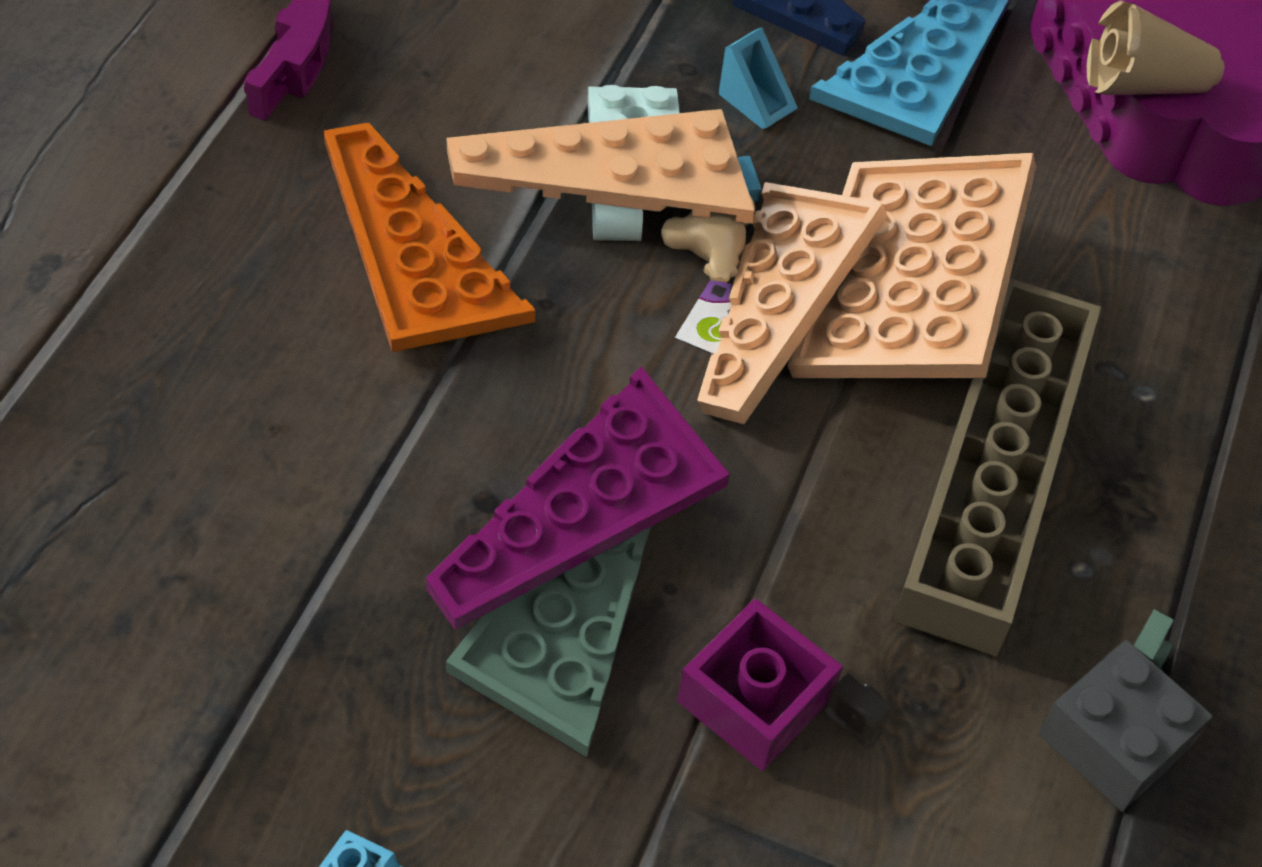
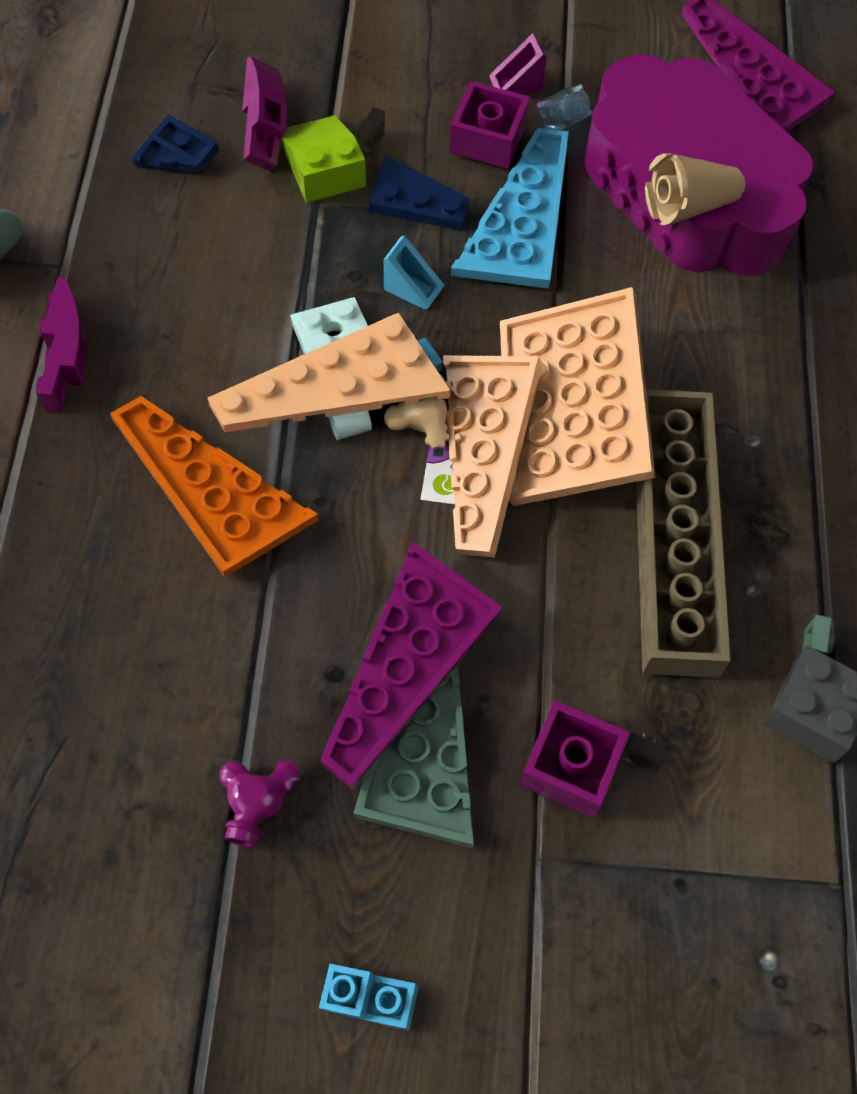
camera: 15 degrees left, 10 degrees up
(327, 608) = (255, 798): none -> magenta animal

